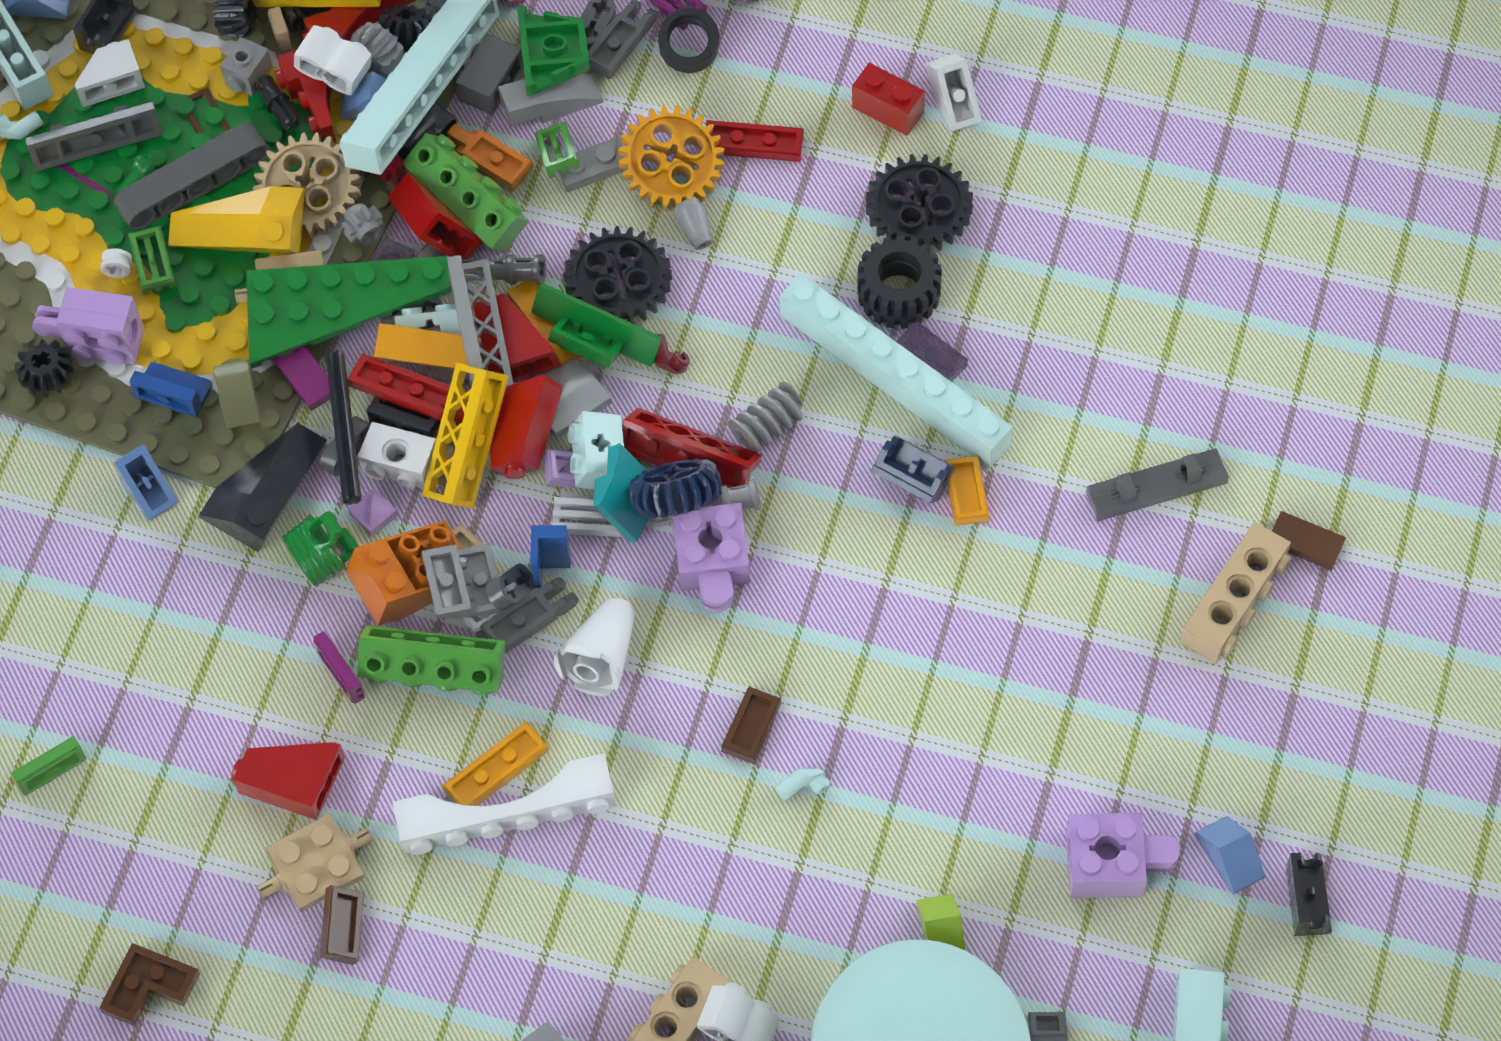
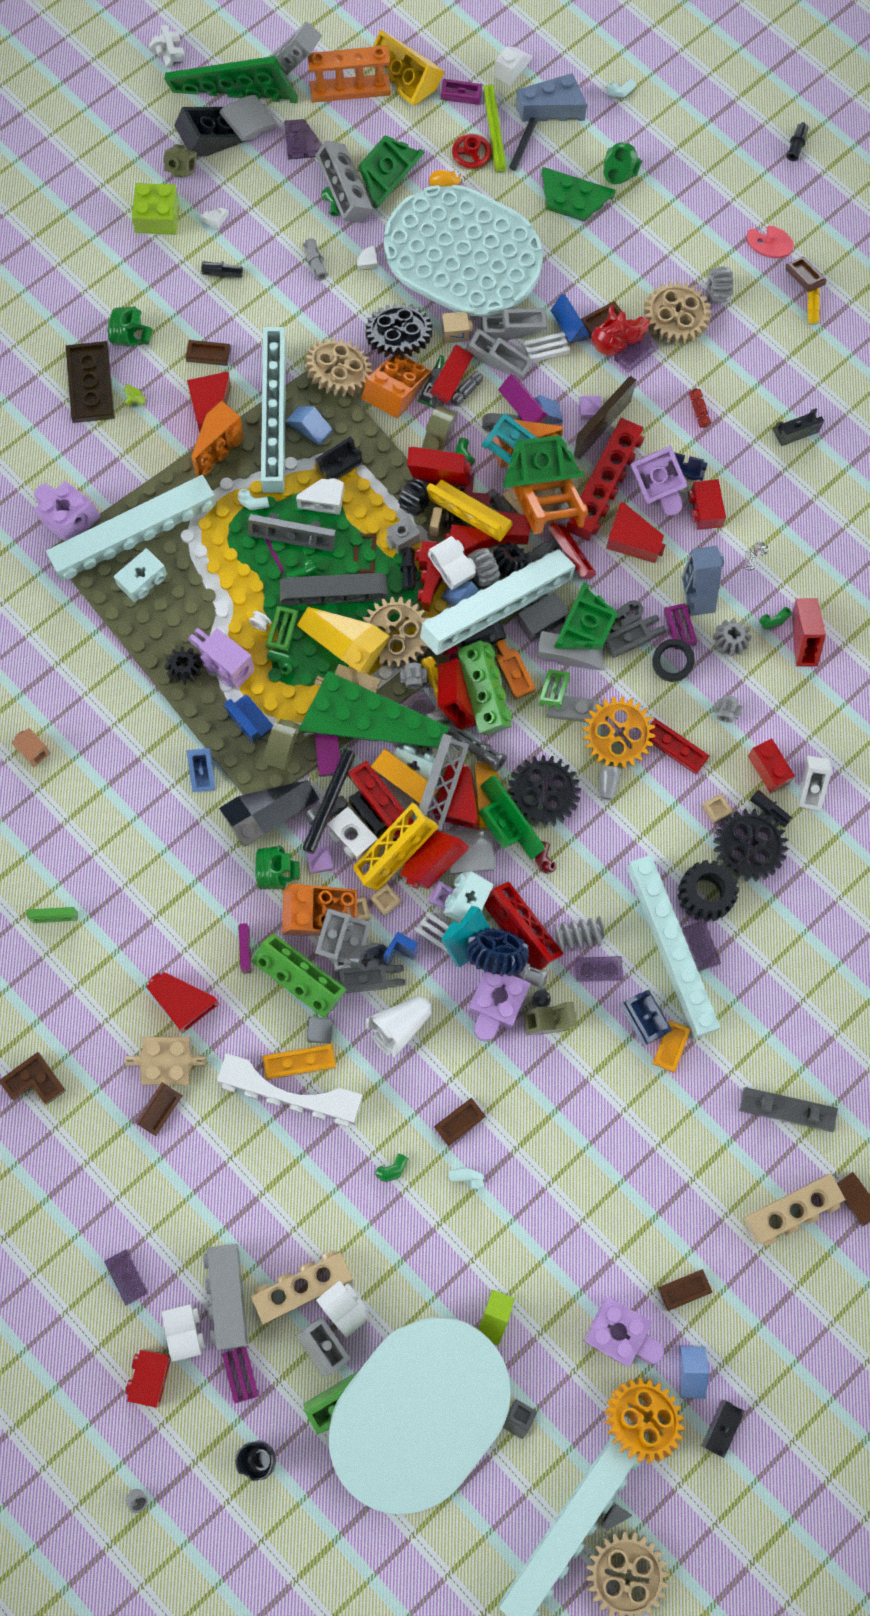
camera: 25 degrees right, 10 degrees up
(177, 296) = (284, 661): none -> green arm
(389, 213) = (432, 673): none -> yellow axle
(490, 514) = (385, 900): none -> tan tile
(498, 715) = (319, 1030): none -> slope
(701, 830) = (393, 1171): none -> green arm
(766, 517) = (541, 998): none -> black axle
(792, 61) = (727, 709): none -> light grey gear
(794, 538) = (550, 1019): none -> olive brick
(817, 447) = (598, 969): none -> clear purple plate
(850, 185) = (717, 808): none -> tan tile
(903, 147) = (771, 808): none -> black axle
(1160, 764) = (684, 1290): none -> reddish brown tile
(1204, 936) = (632, 1436): none -> light orange gear

